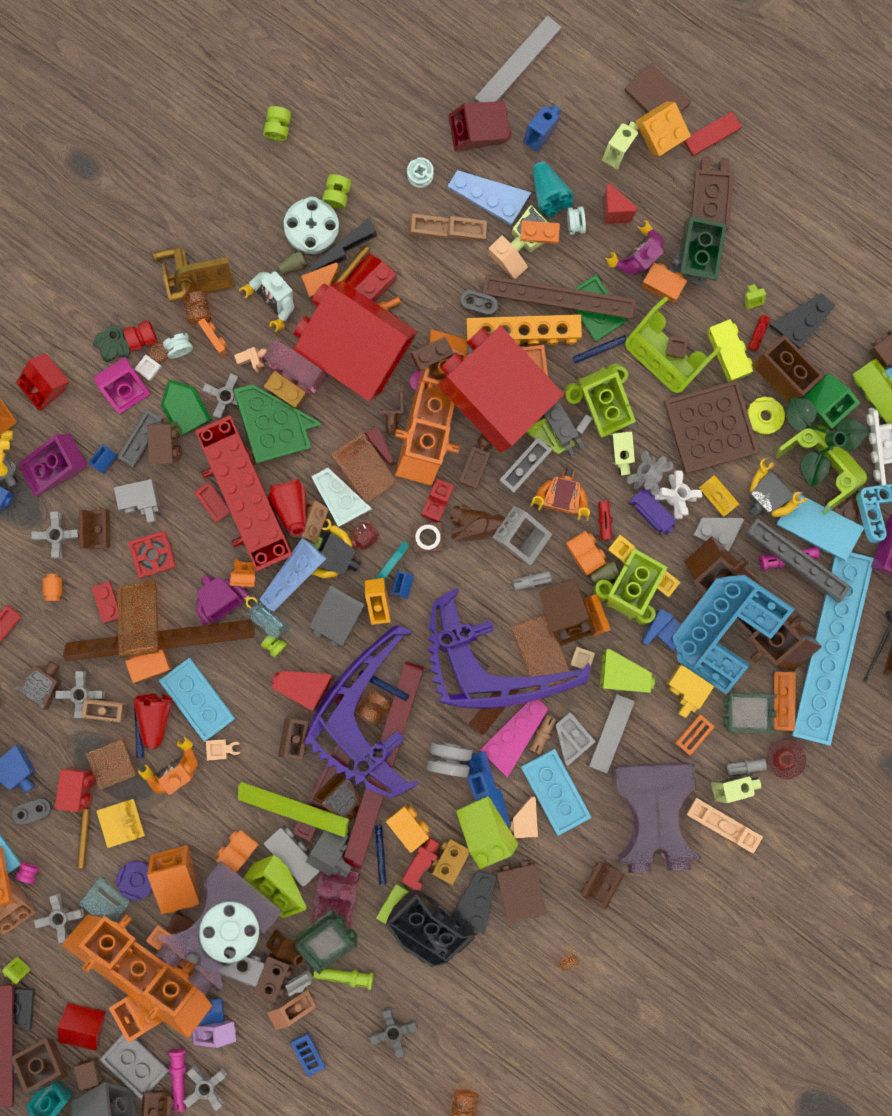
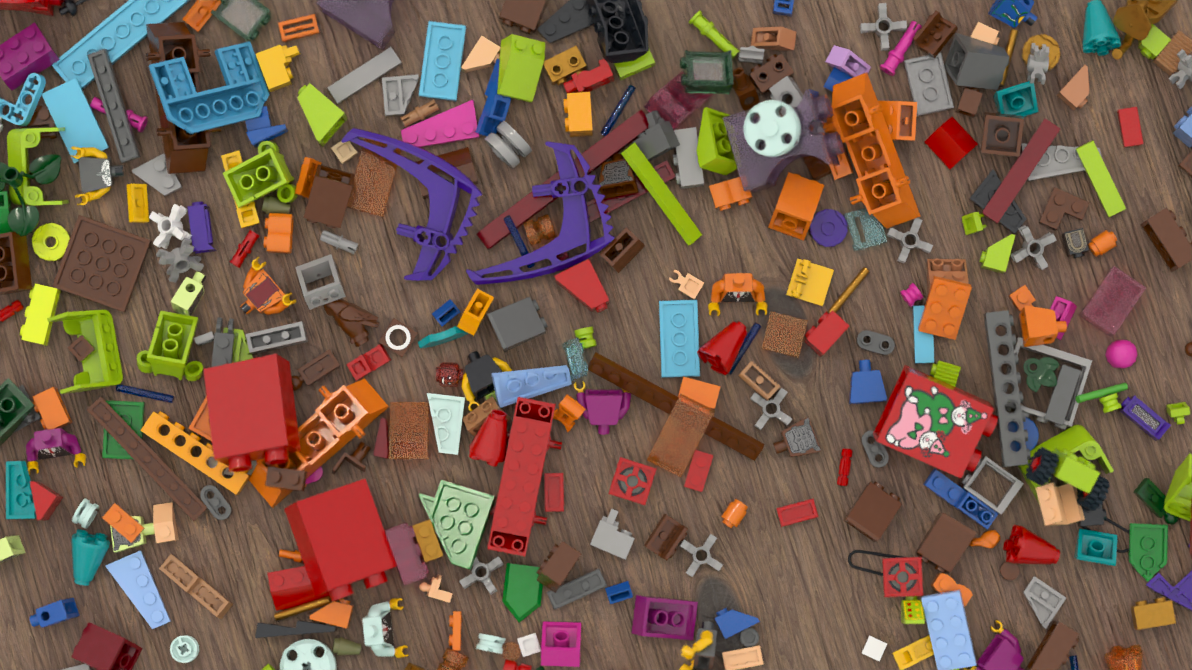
camera: 145 degrees left, 0 degrees up
(638, 194) = (18, 492): none -> teal wing

